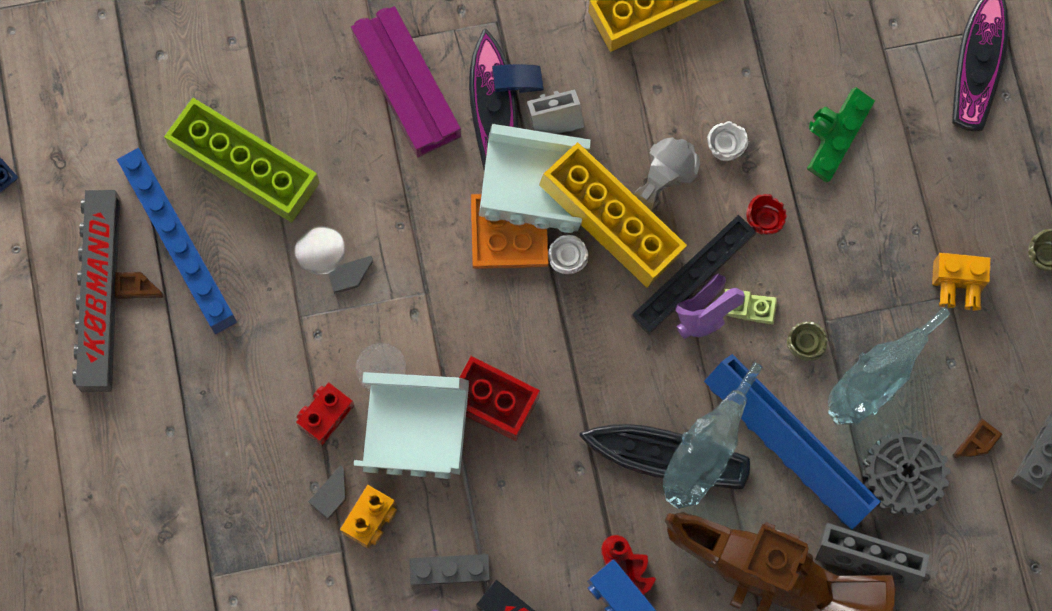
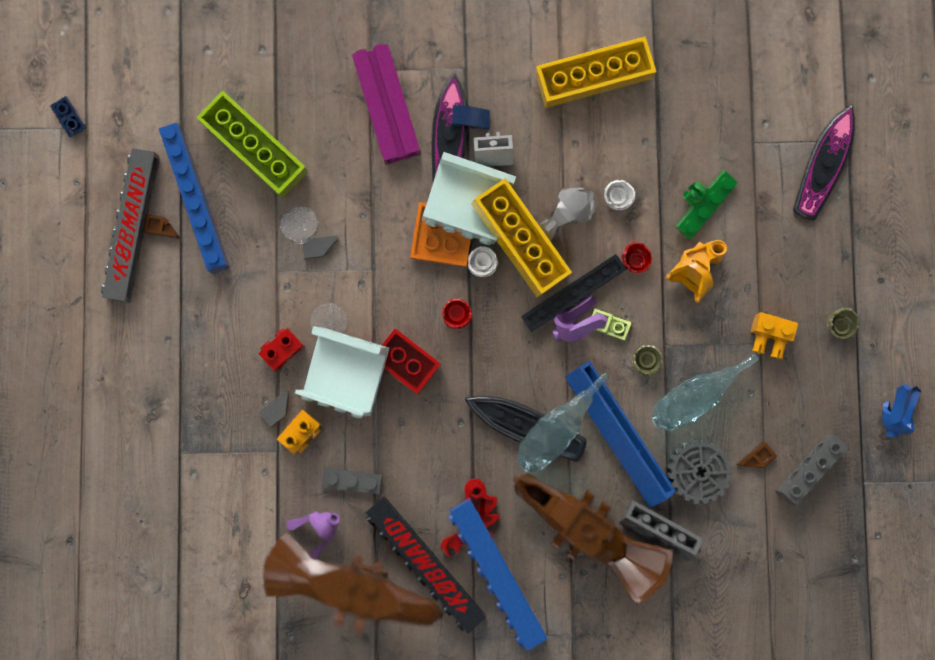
camera: 10 degrees right, 10 degrees up
(547, 326) = (457, 313): none -> red hair
(844, 212) = (696, 267): none -> light orange piece

